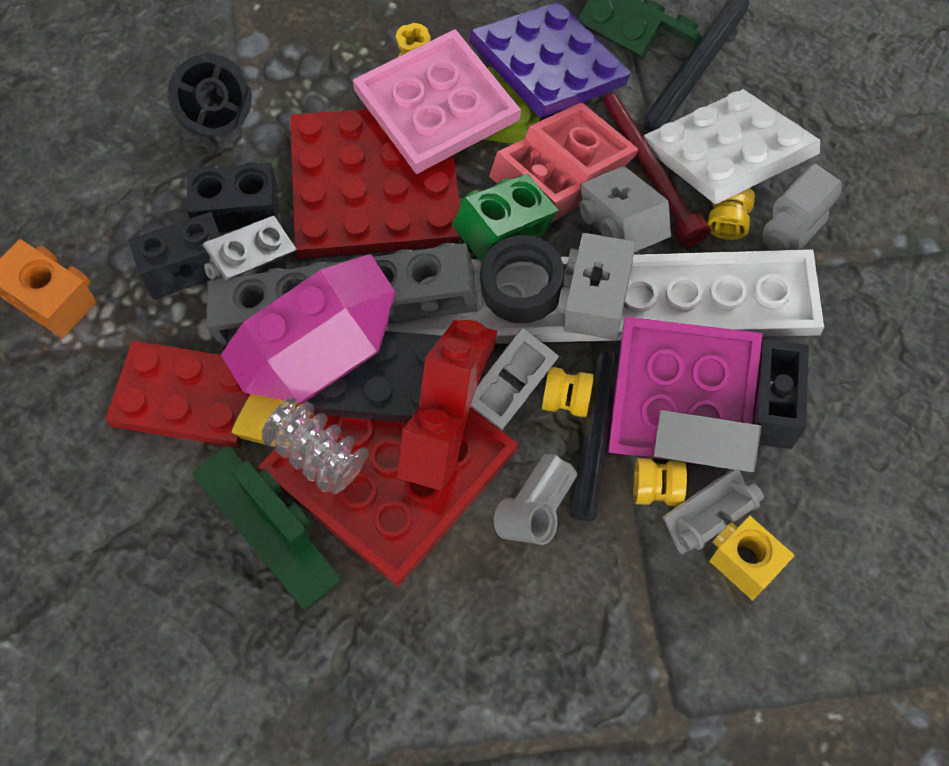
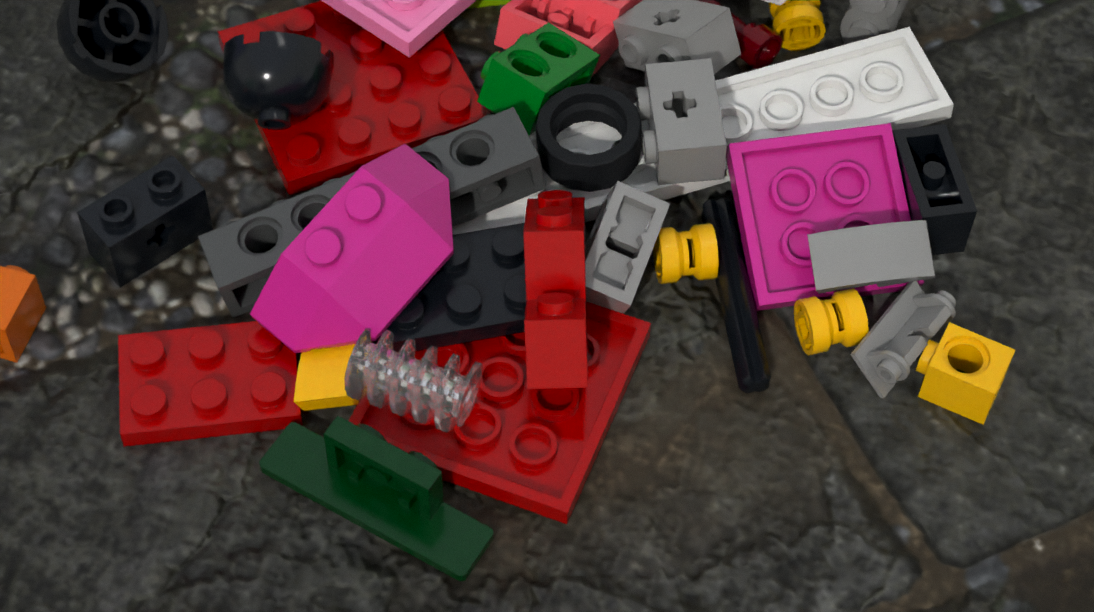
camera: 20 degrees left, 10 degrees down
(233, 191) = (195, 129): black brick -> none
(247, 249) = (231, 190): light grey hinge -> none
(305, 170) = (277, 77): none -> black cylinder
(533, 513) = (699, 387): light grey piece -> none

